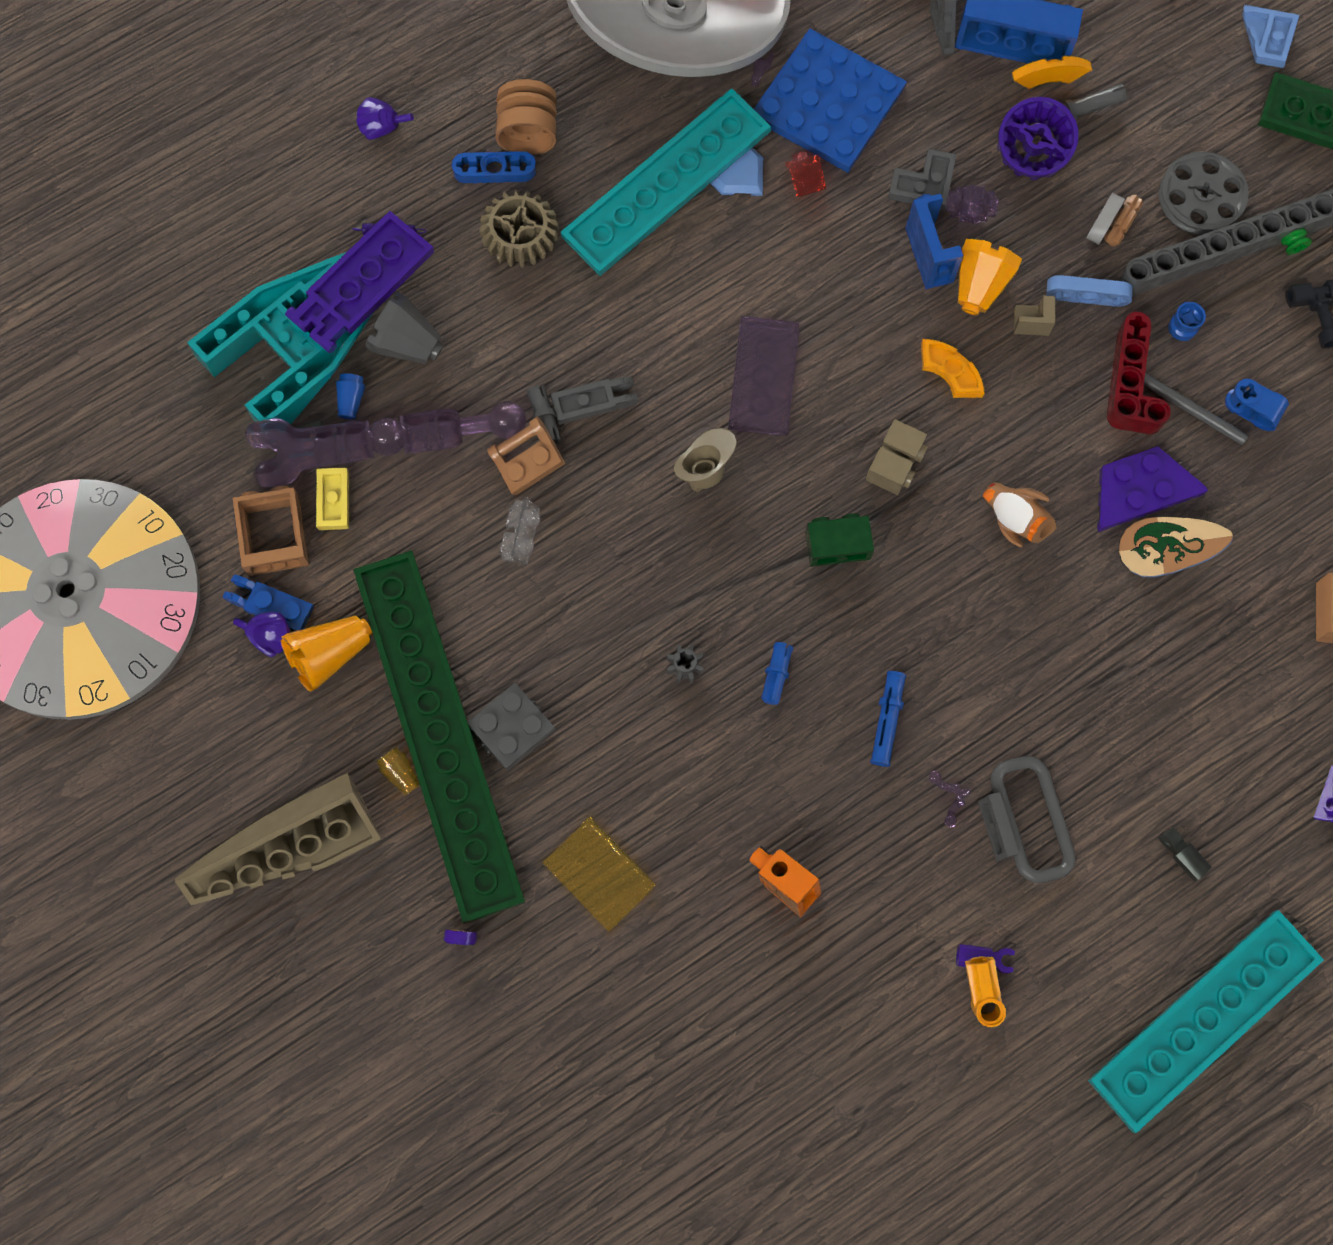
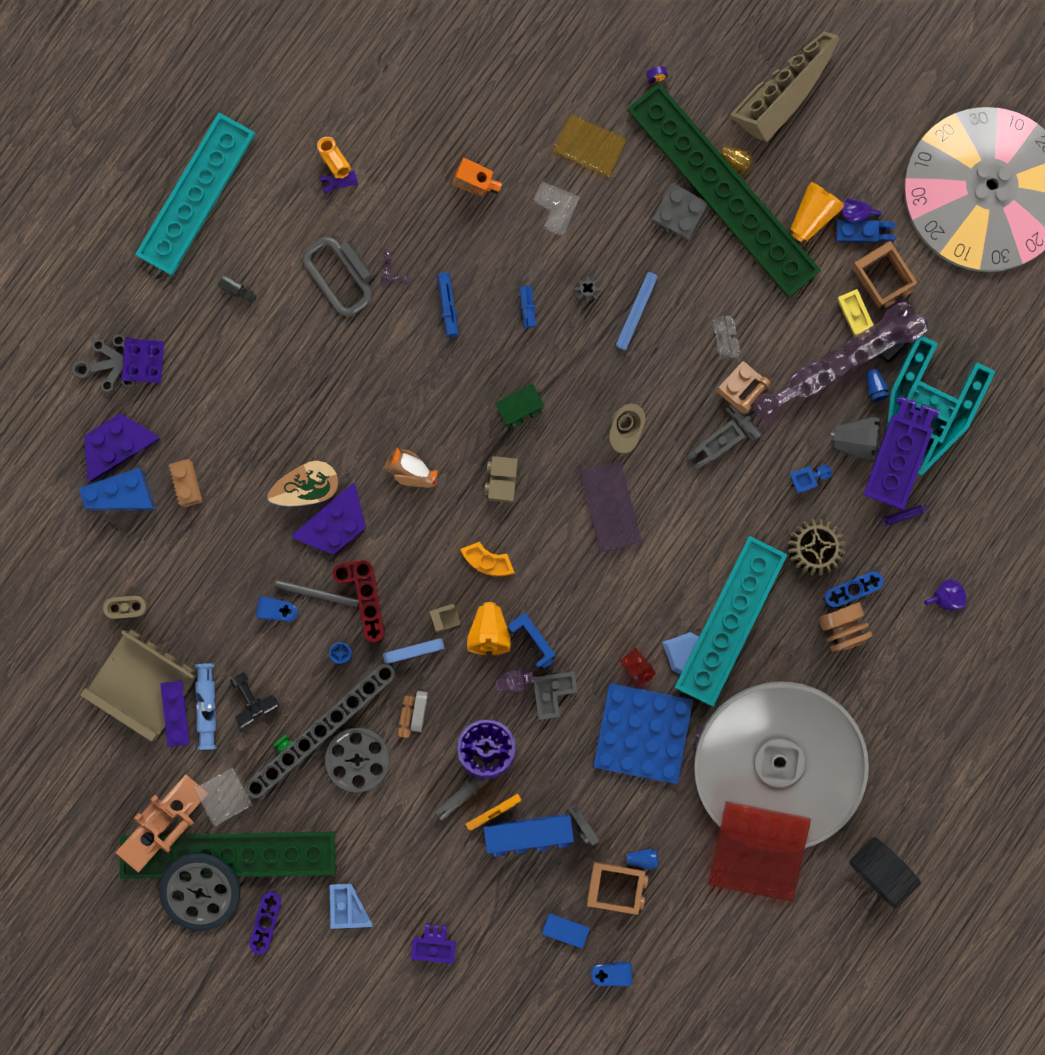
camera: 165 degrees right, 10 degrees up
(496, 315) = (805, 479): none -> blue plate
(627, 613) = (636, 311): none -> medium blue axle
(673, 804) = (561, 203): none -> clear plate

